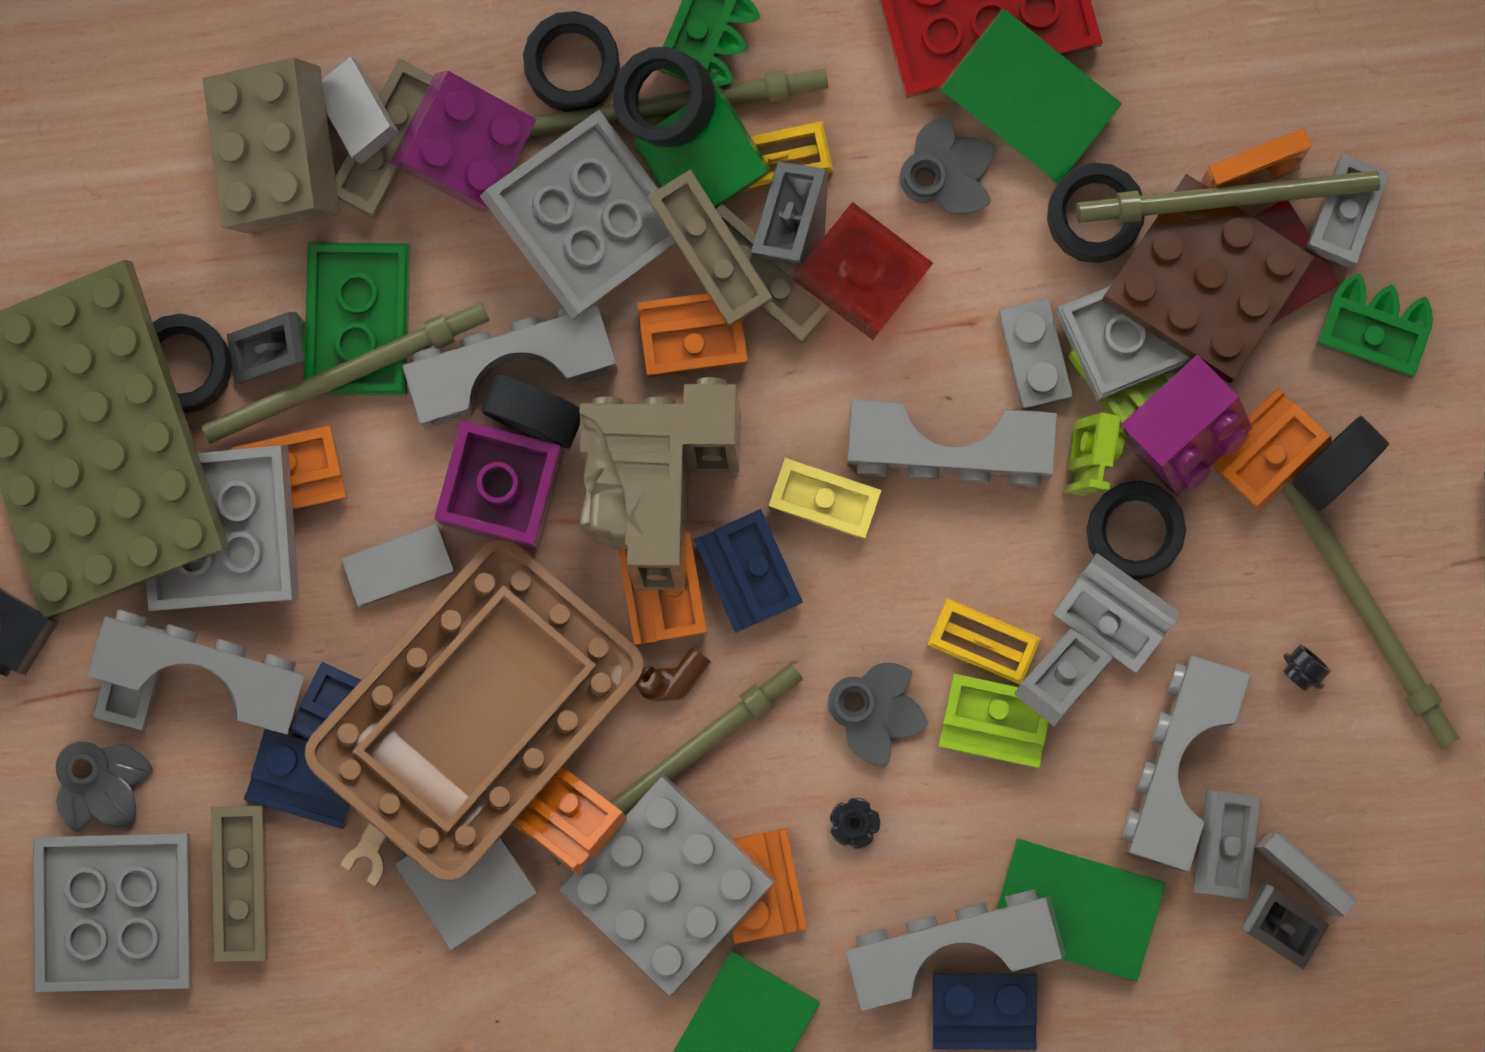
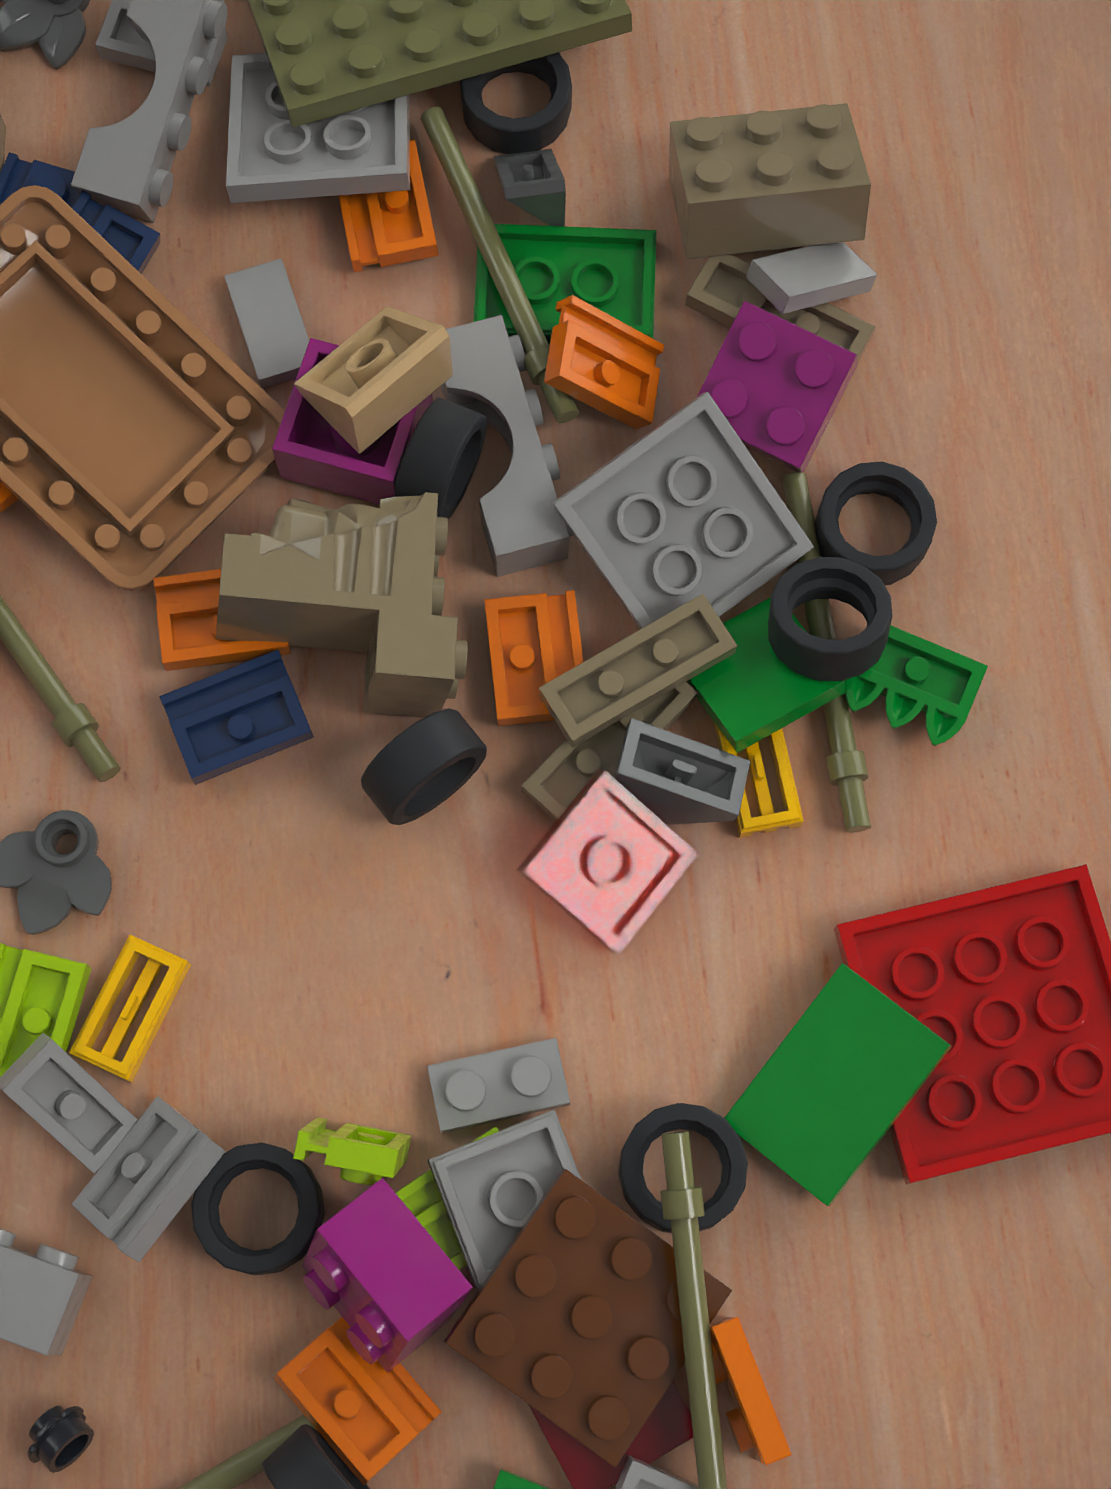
camera: 80 degrees right, 10 degrees down
(440, 280) = (604, 363): none -> orange plate
(471, 461) = (378, 375): none -> tan slope
(673, 682) = (108, 627): reddish brown arm -> none
(792, 415) = (423, 766): none -> black tyre
(824, 498) = (320, 813): light yellow plate -> none
(886, 439) = (394, 888): light grey arch -> none
(954, 165) = (745, 988): dark grey plate -> none

